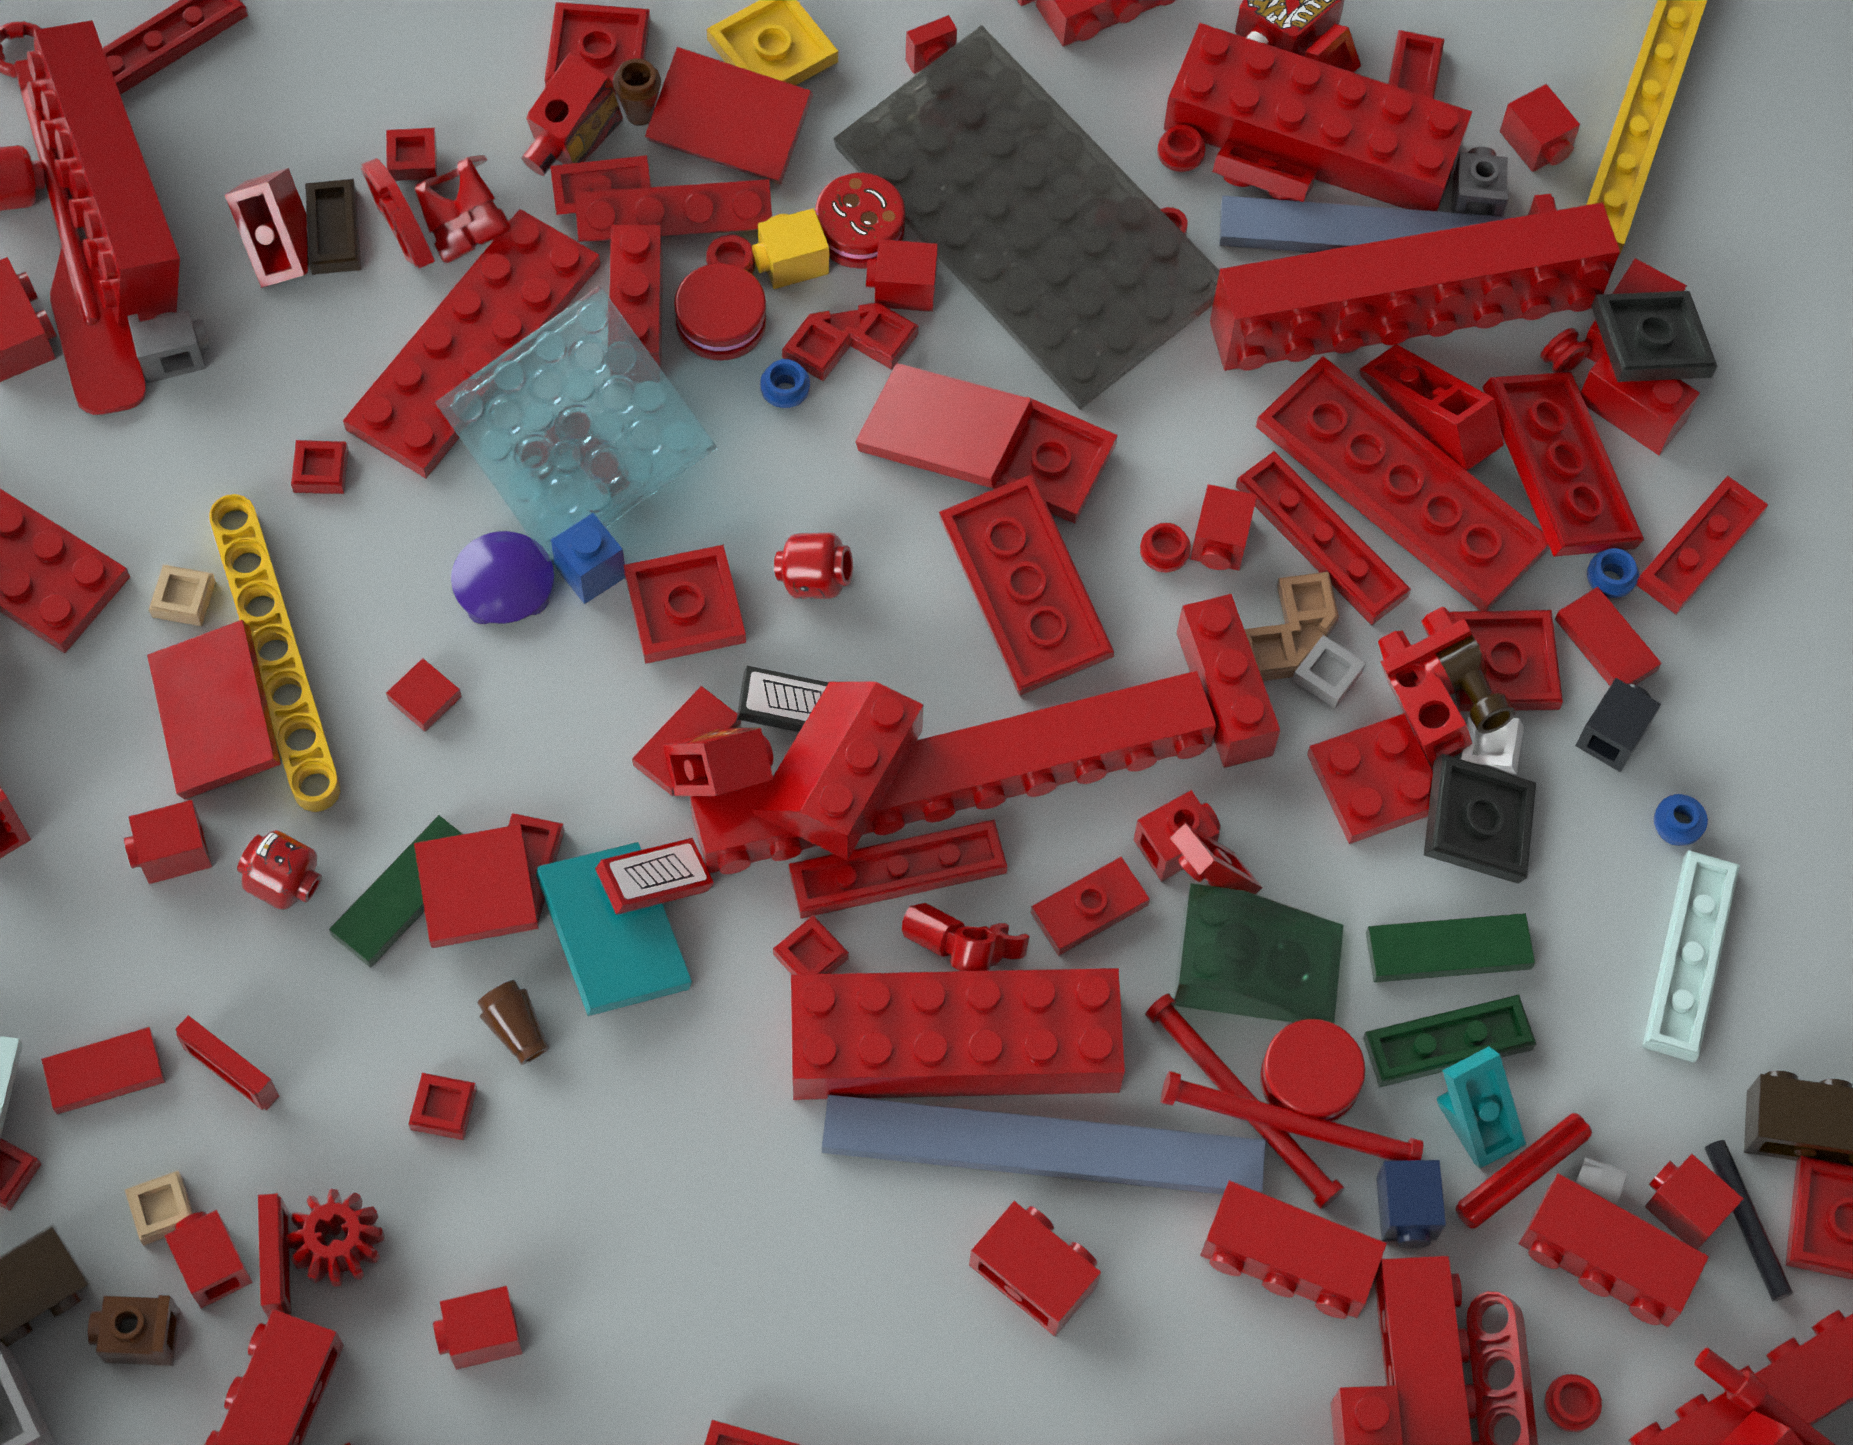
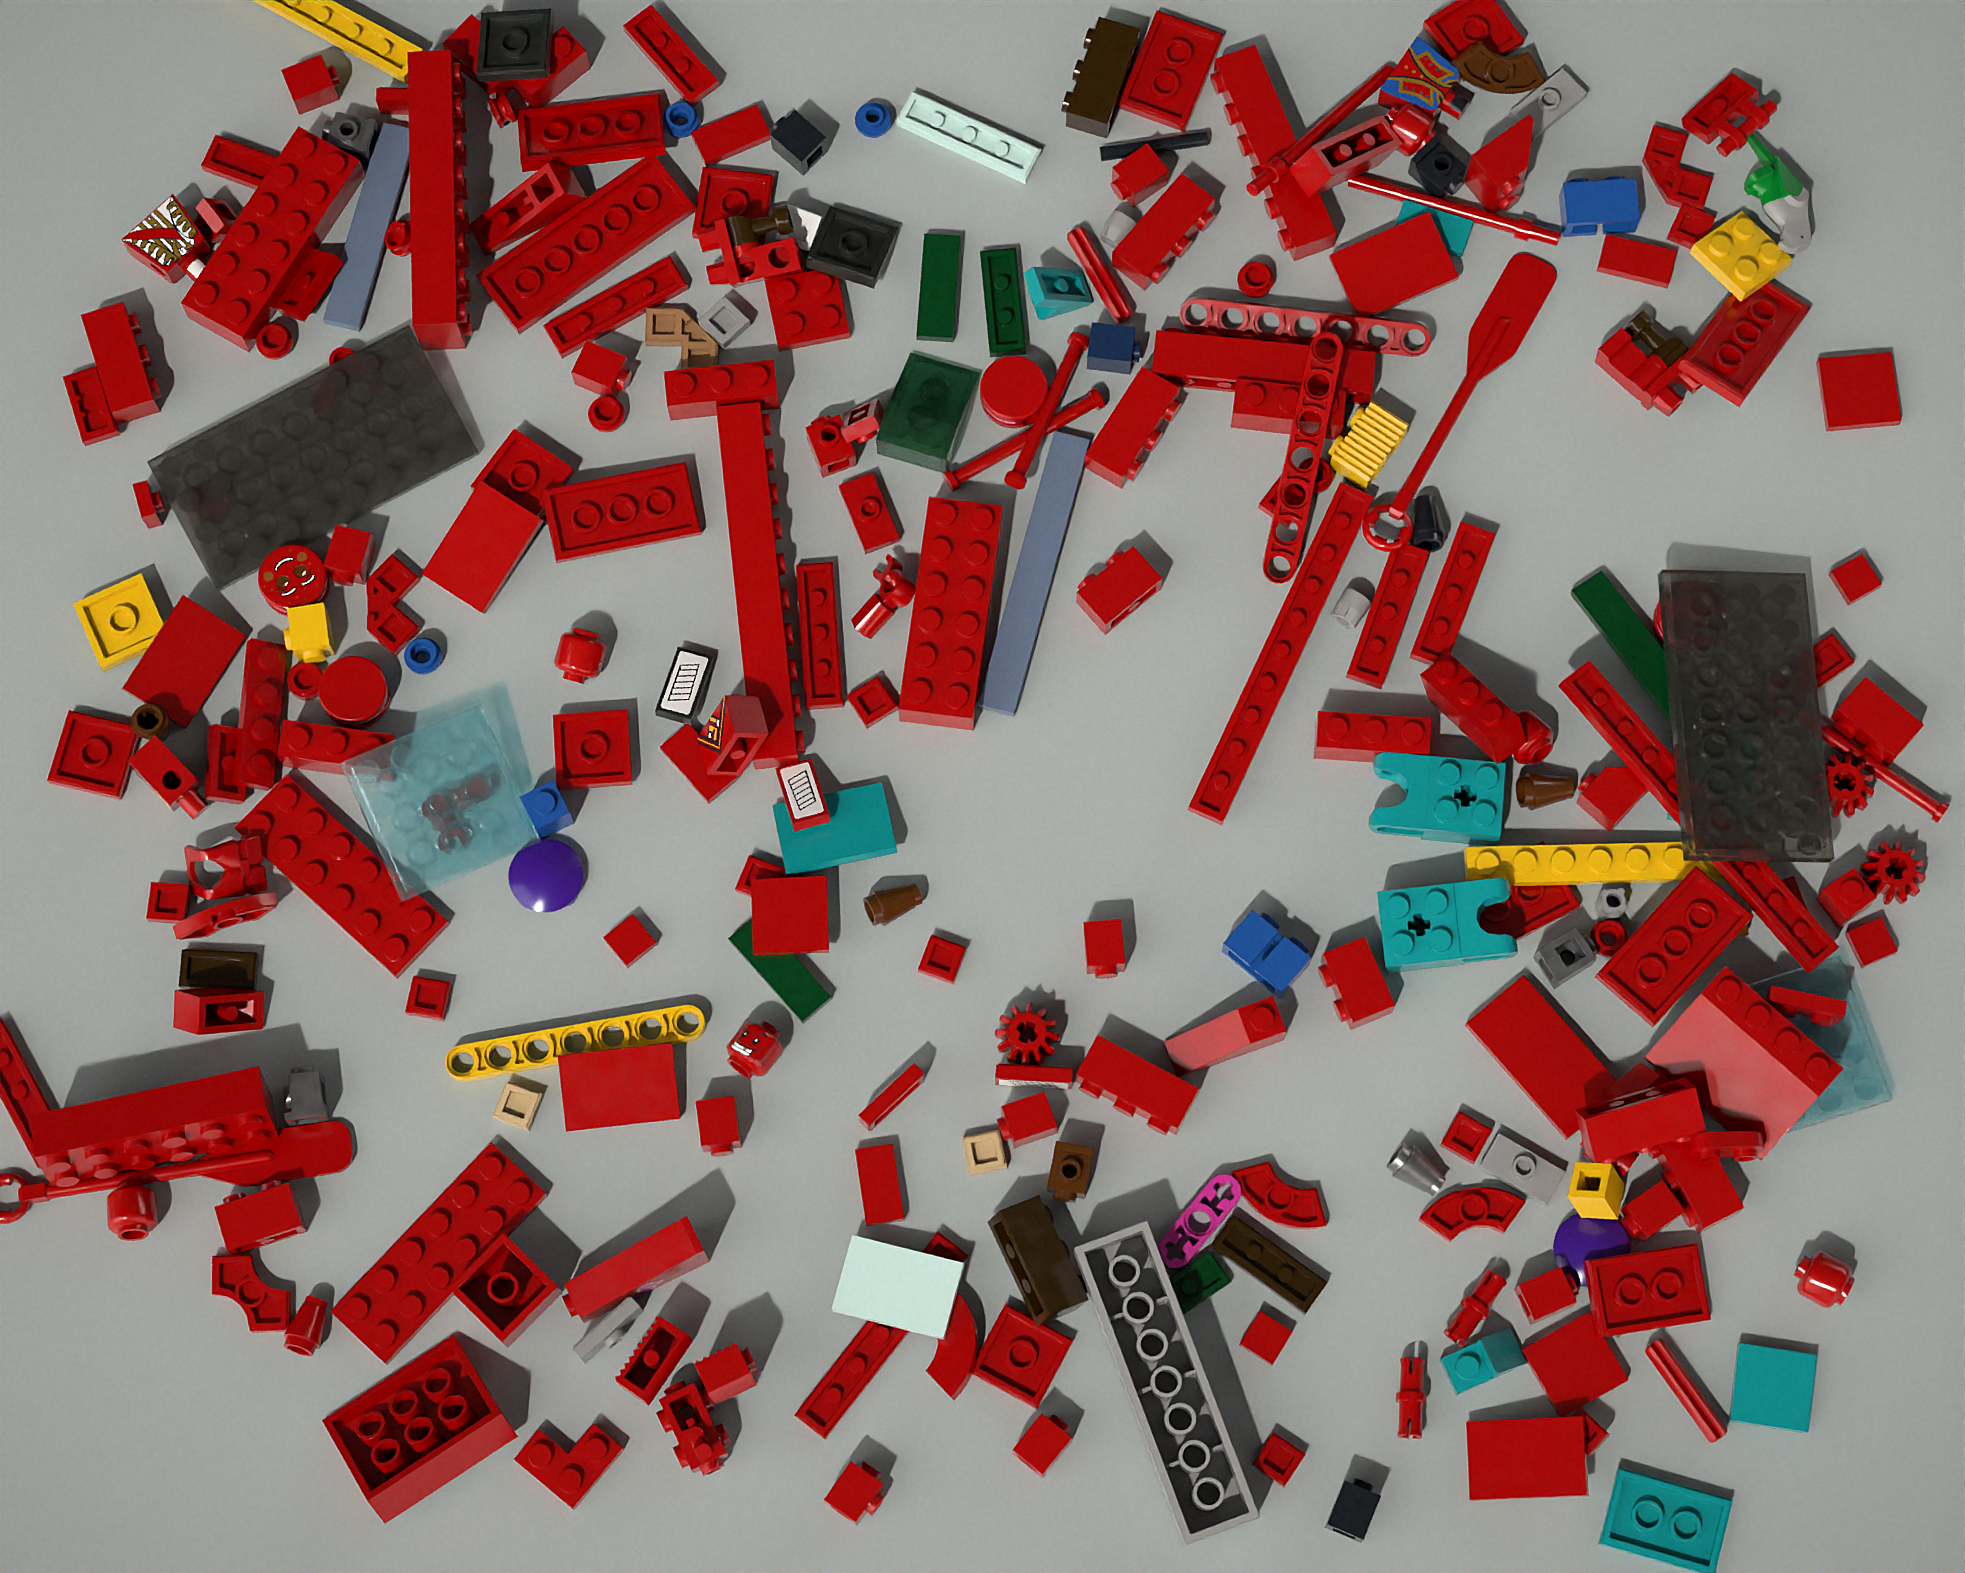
camera: 75 degrees left, 10 degrees up
(842, 764) = (750, 651): red slope -> none

